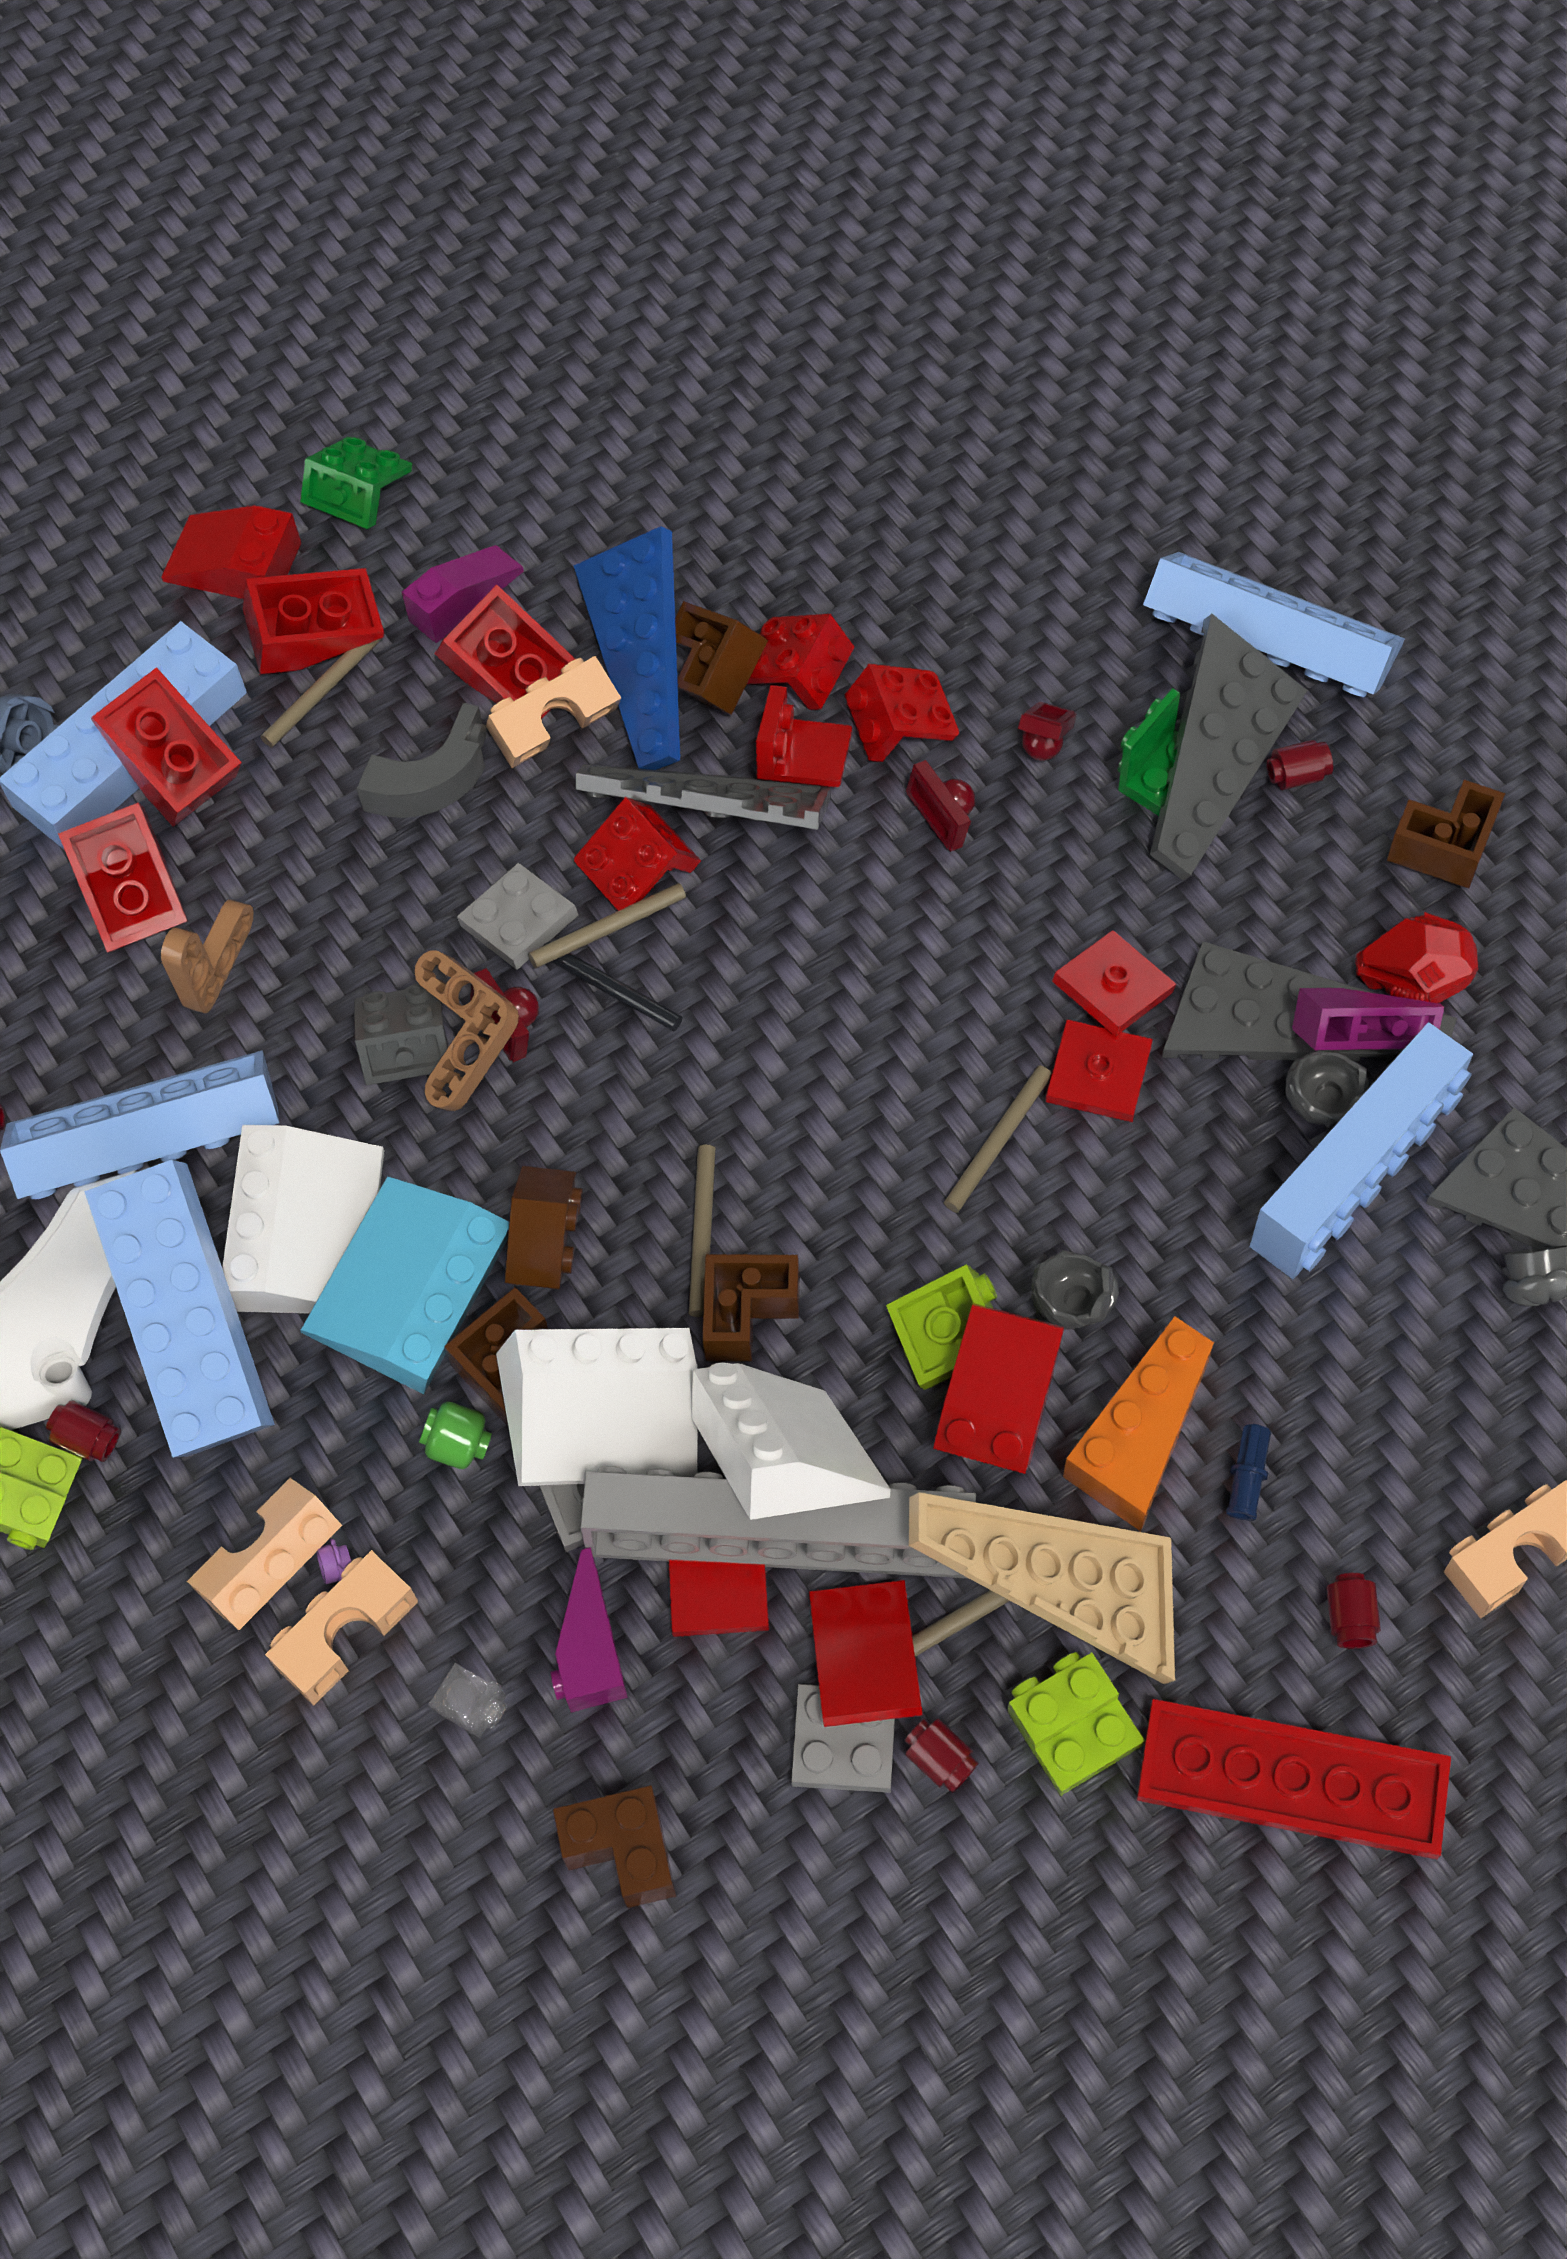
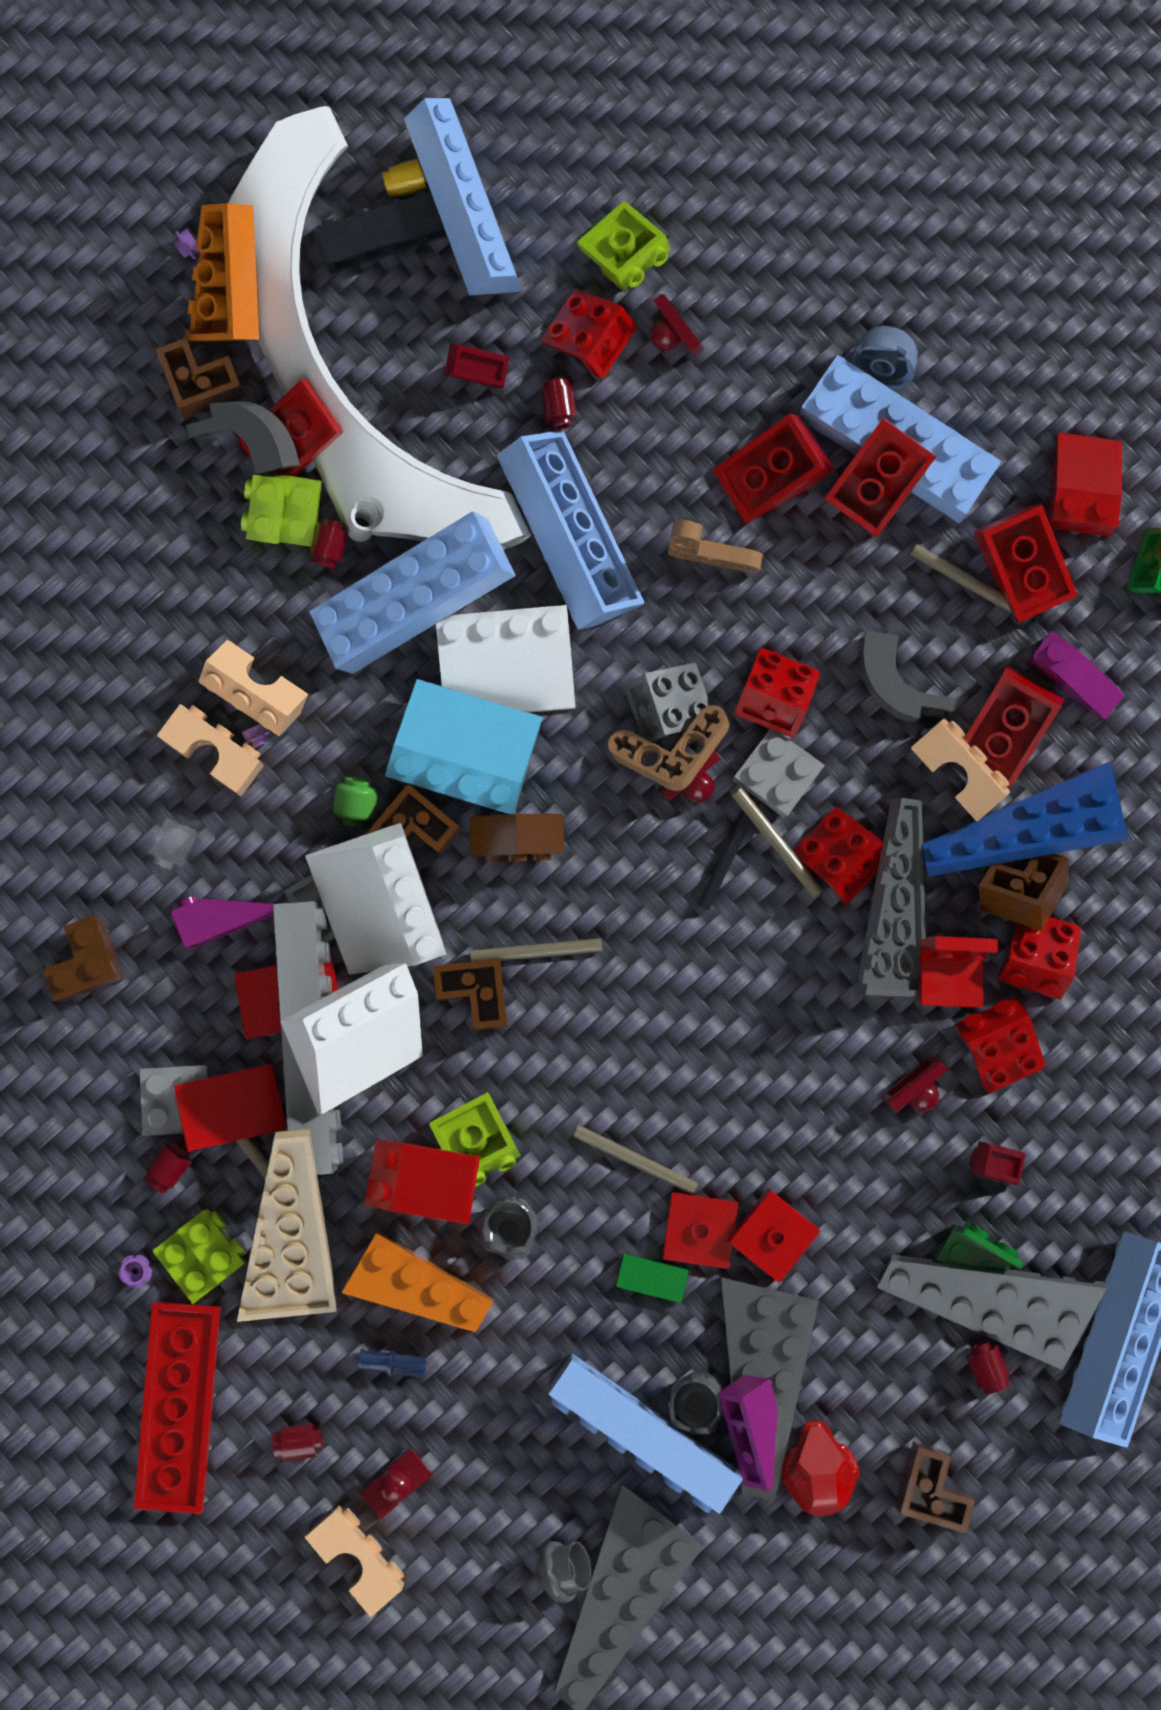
camera: 75 degrees right, 20 degrees up
(417, 900) = (777, 693): none -> red bracket
(1095, 1810) = (126, 1271): none -> medium lavender plate
(1157, 1134) = (652, 1278): none -> green tile
(1417, 1486) = (396, 1483): none -> dark red tile

